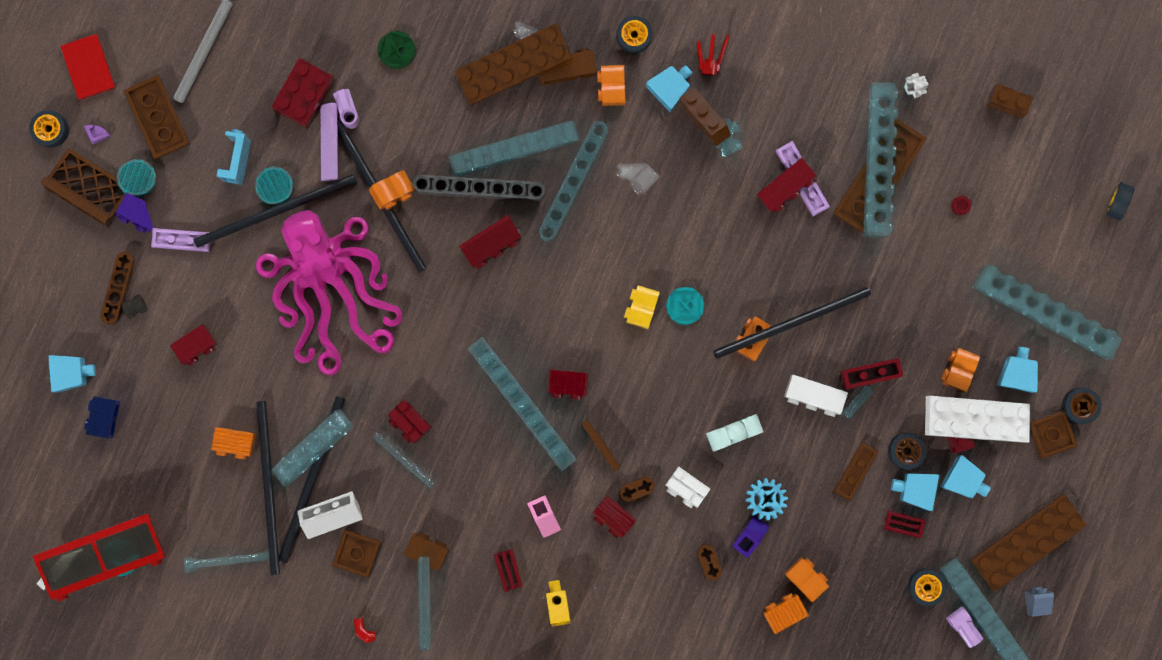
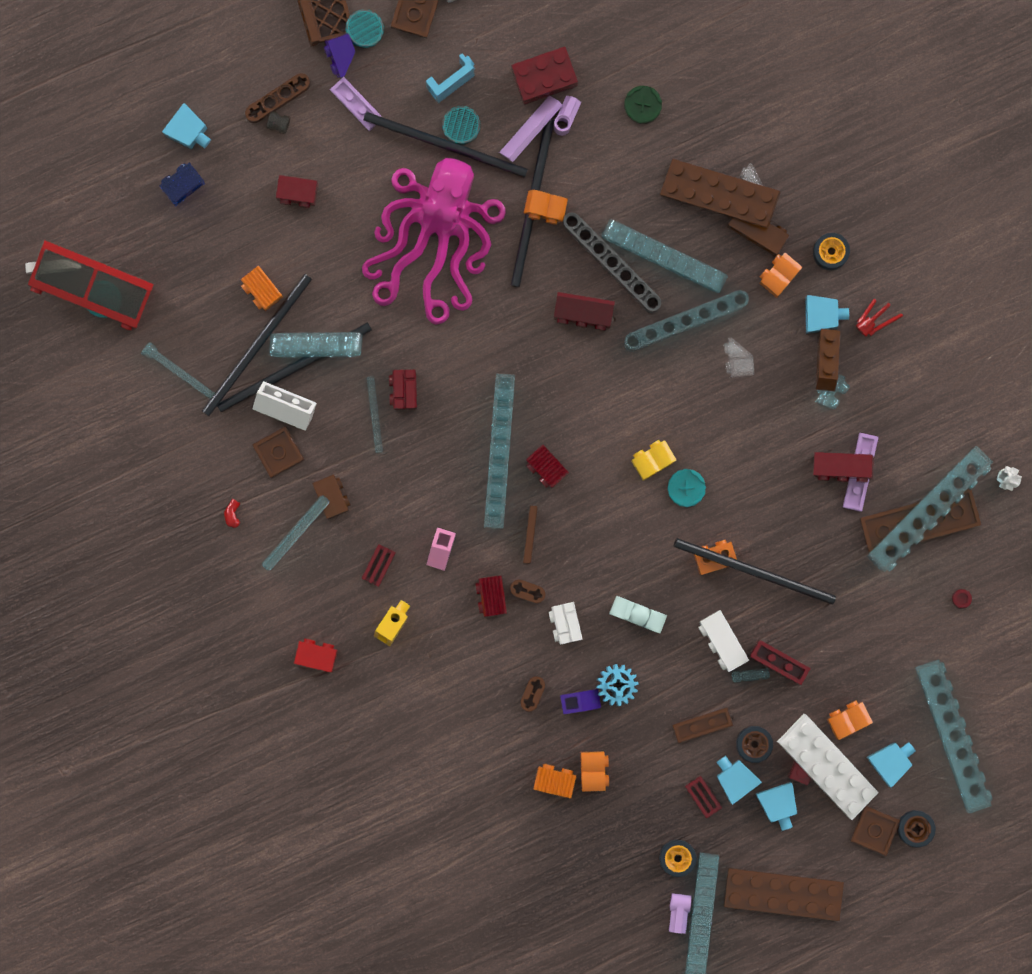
camera: 45 degrees right, 0 degrees up
(1039, 601) = (751, 943): sand blue slope -> none

